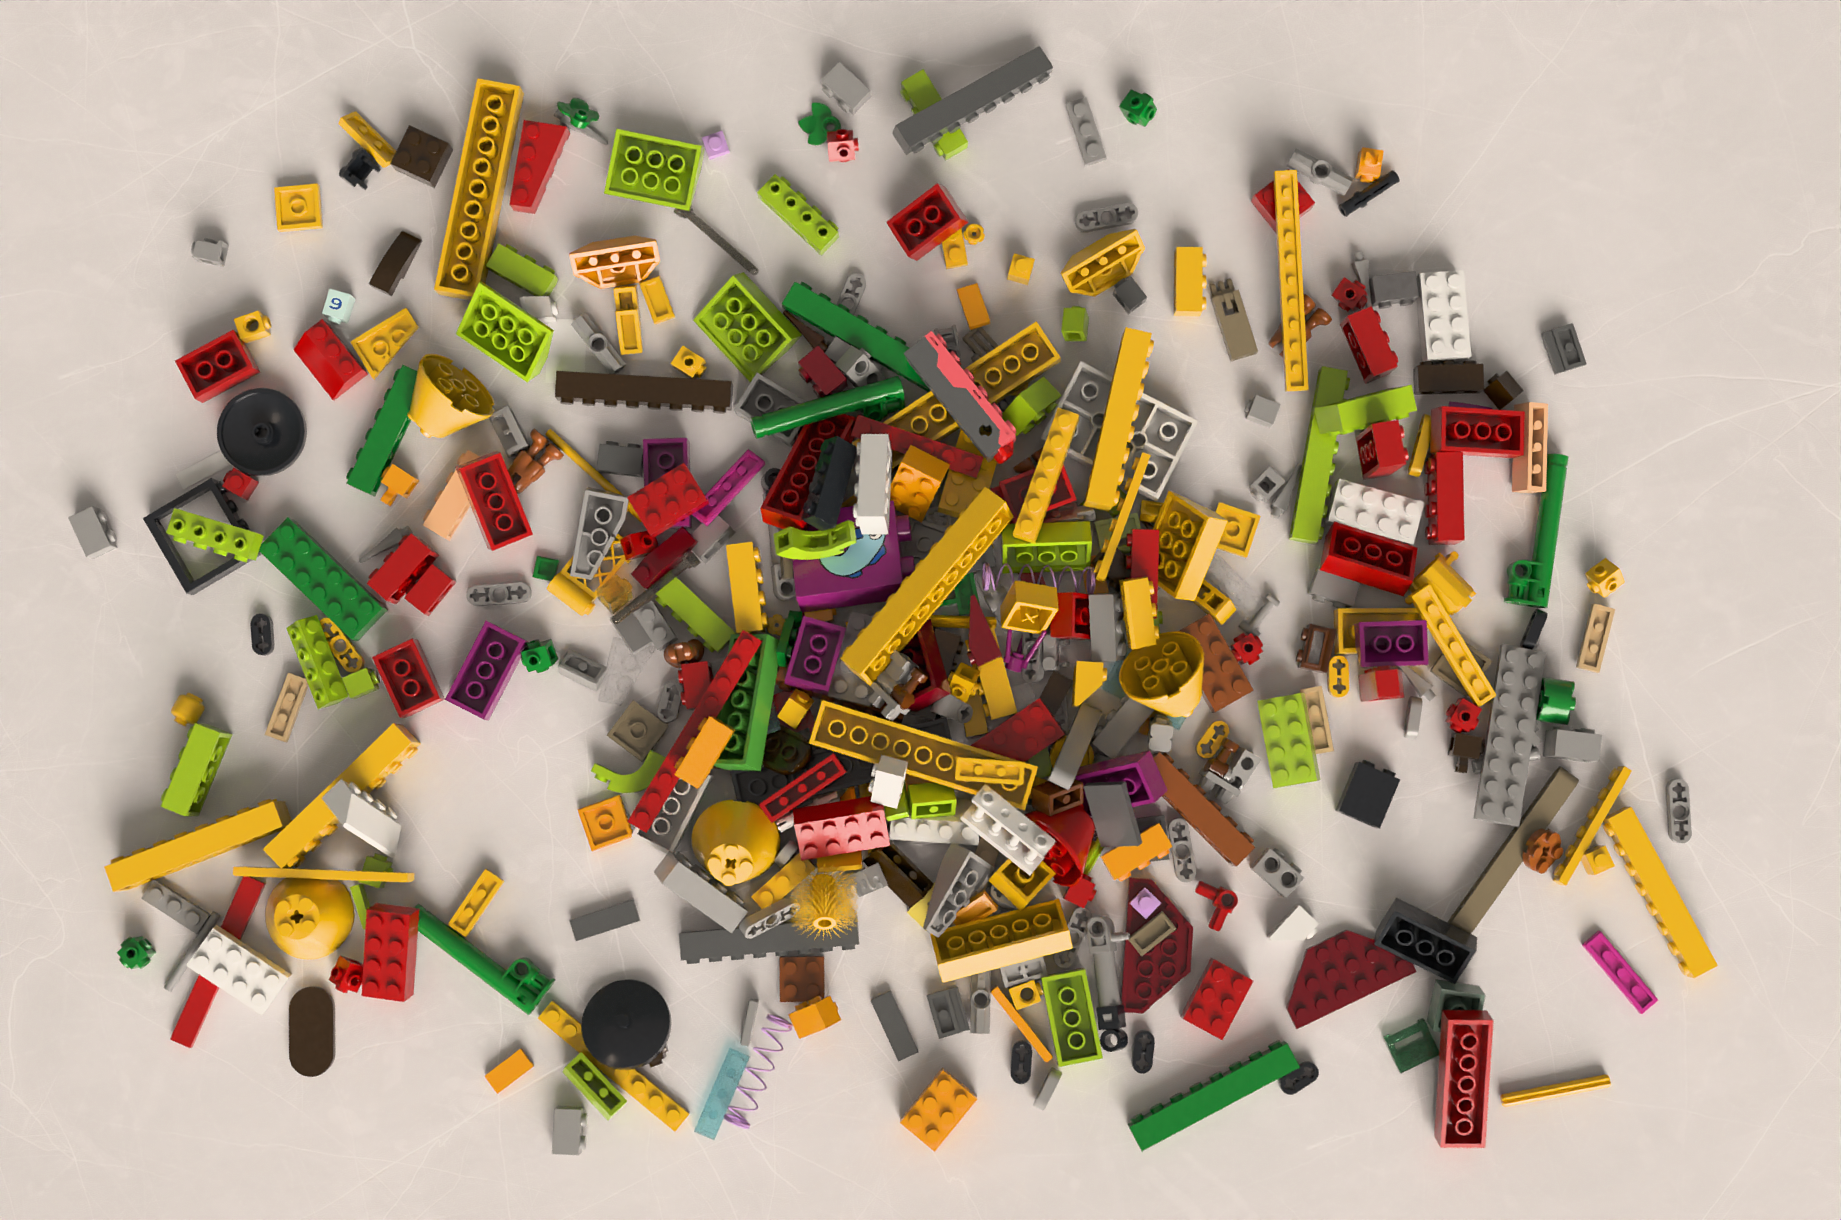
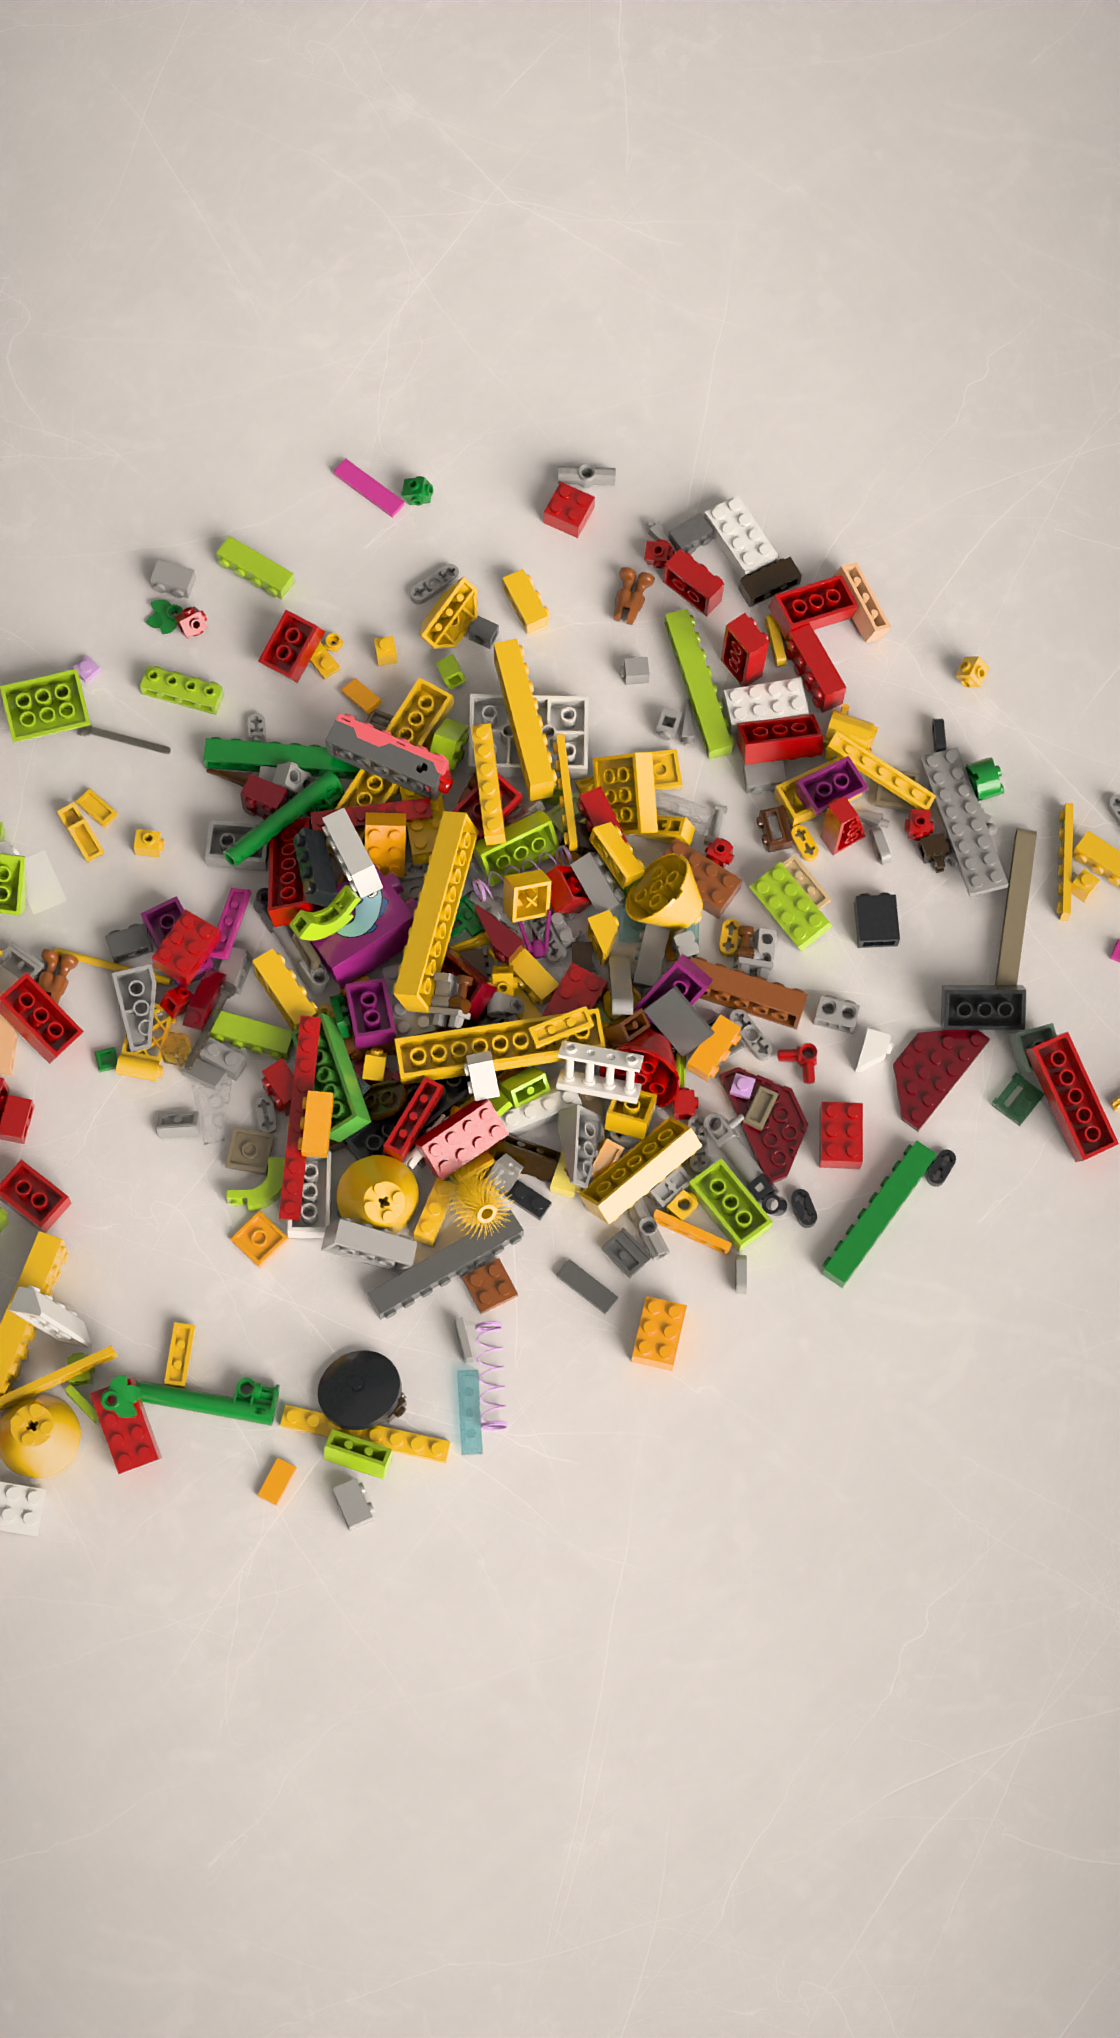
camera: 30 degrees left, 15 degrees down
(311, 1031) = (87, 1532): dark brown tile -> none
(347, 974) = (97, 1465): red brick -> none
(395, 931) = (125, 1397): none -> green plate
(483, 600) = (75, 1105): light grey beam -> none
(486, 671) = (97, 1159): magenta brick -> none
(539, 655) = (140, 1122): green brick -> none
(590, 333) = (76, 866): light grey piece -> none
(604, 920) = (297, 1318): dark grey tile -> none
(615, 261) = (49, 790): light orange wedge -> none
(643, 390) = (121, 881): dark brown brick -> none
(685, 651) = (253, 1068): dark orange piece -> none
(747, 326) = (182, 794): lime slope -> none
(759, 922) = (428, 1250): light grey beam -> none
(786, 854) = (425, 1186): light grey beam -> none
(814, 1016) = (516, 1305): light orange brick -> none
(881, 911) = (529, 1200): none -> black plate
(973, 100) = (281, 540): dark grey brick -> none
(1015, 1061) = (703, 1266): black beam -> none
(1085, 131) = (384, 528): light grey plate -> none
(1092, 79) = (369, 488): none -> dark pink tile
(1233, 327) = (579, 619): dark tan hinge -> none
(1290, 280) = (606, 561): yellow plate -> none
(1361, 198) = (629, 481): black pin -> none
(1364, 410) = (710, 630): lime brick -> none
(1369, 164) = (622, 453): light orange brick -> none
(1502, 389) = (815, 569): dark brown brick -> none
(1534, 585) = (920, 703): green piece -> none
(1538, 858) = (1037, 896): dark orange plate -> none
(1563, 348) = (847, 520): dark grey plate -> none
(1572, 745) = (1016, 805): light grey brick -> none
(1595, 638) = (990, 721): tan plate -> none

